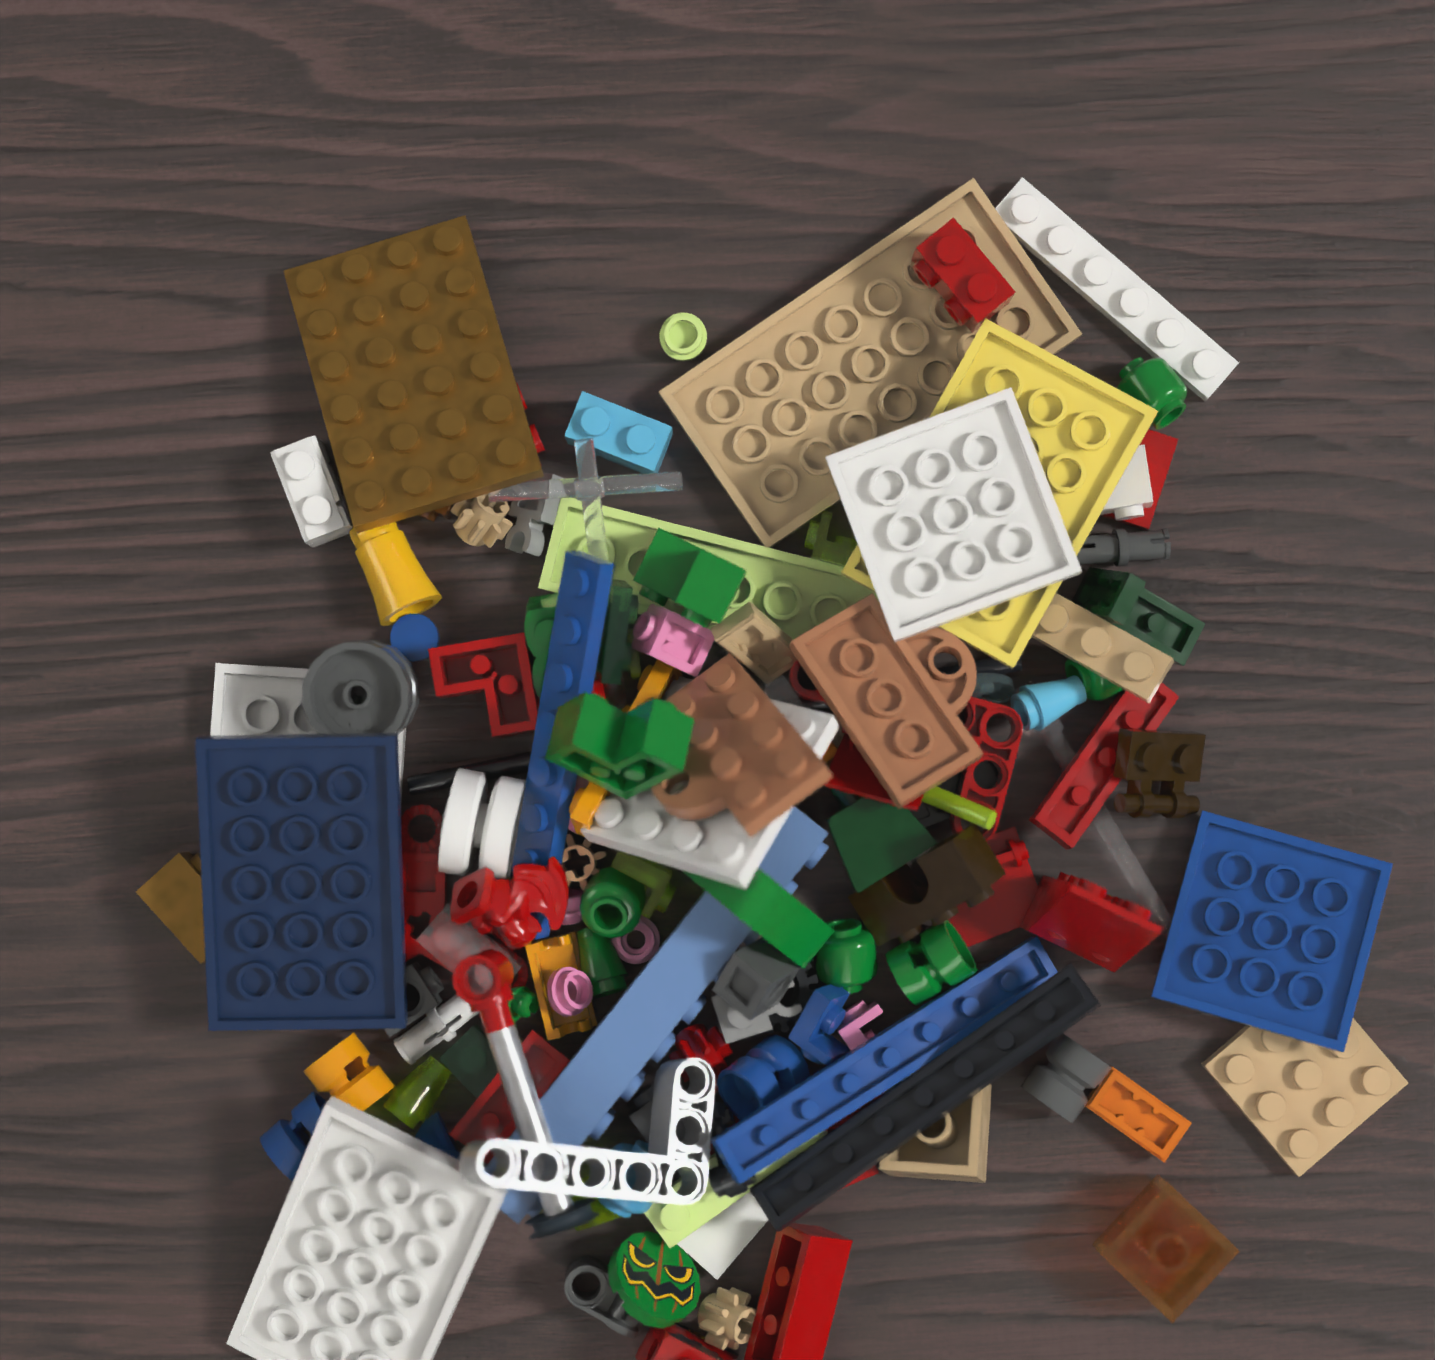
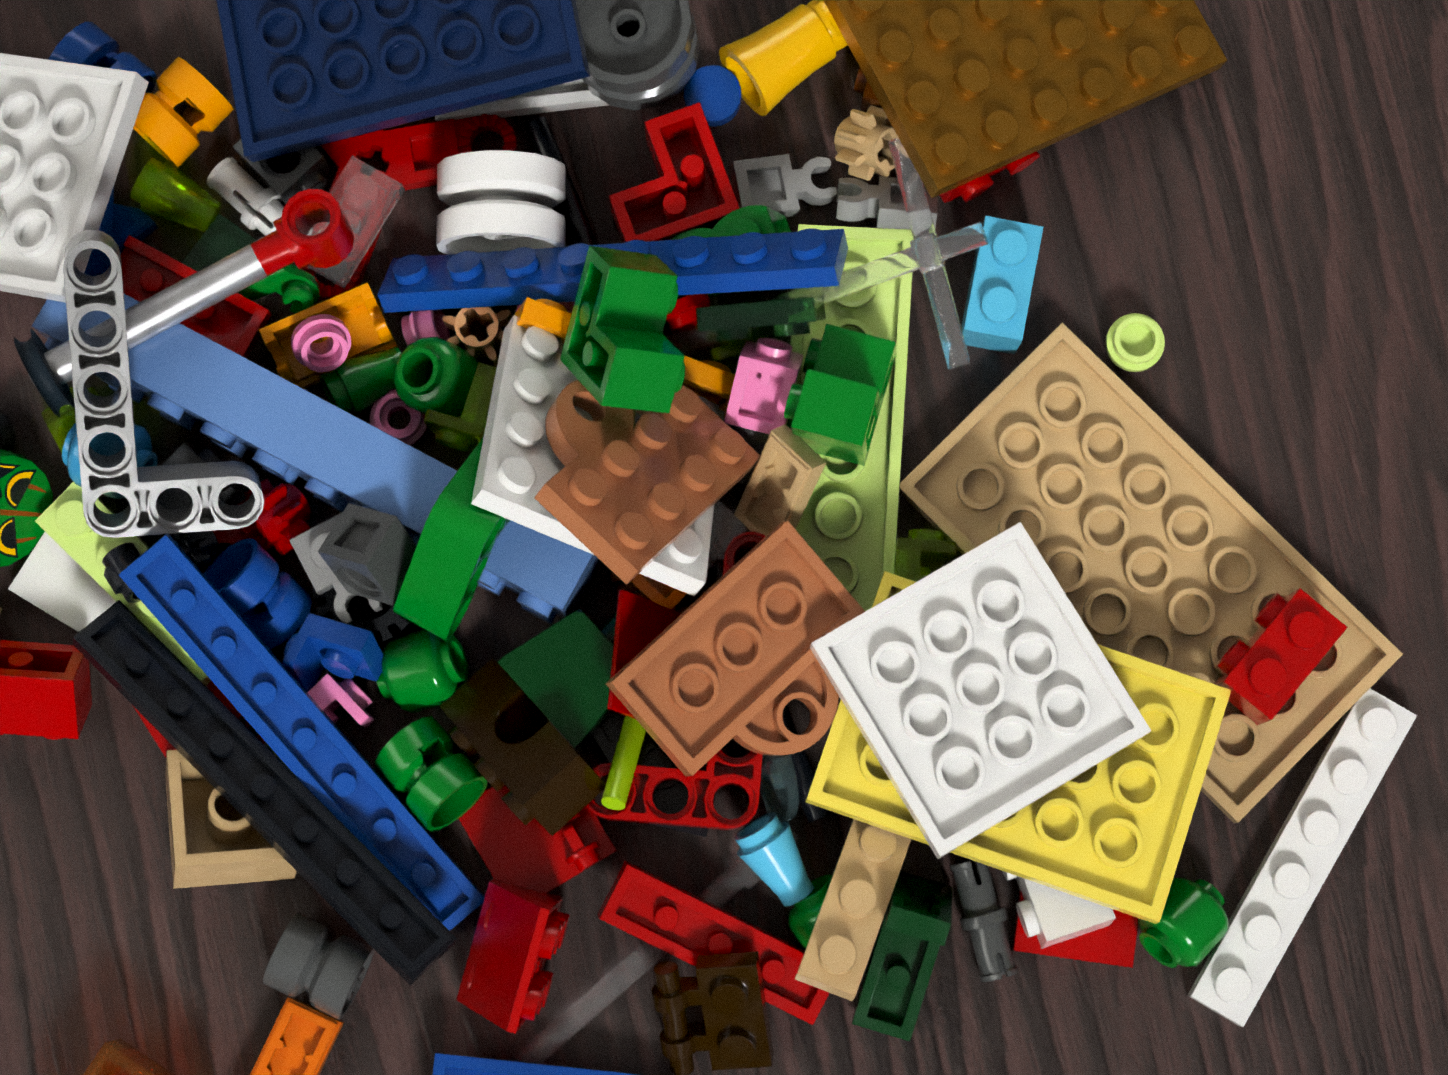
camera: 80 degrees right, 5 degrees down
(502, 603) = (774, 184): none -> light grey plate
(506, 905) = (412, 249): red animal -> none

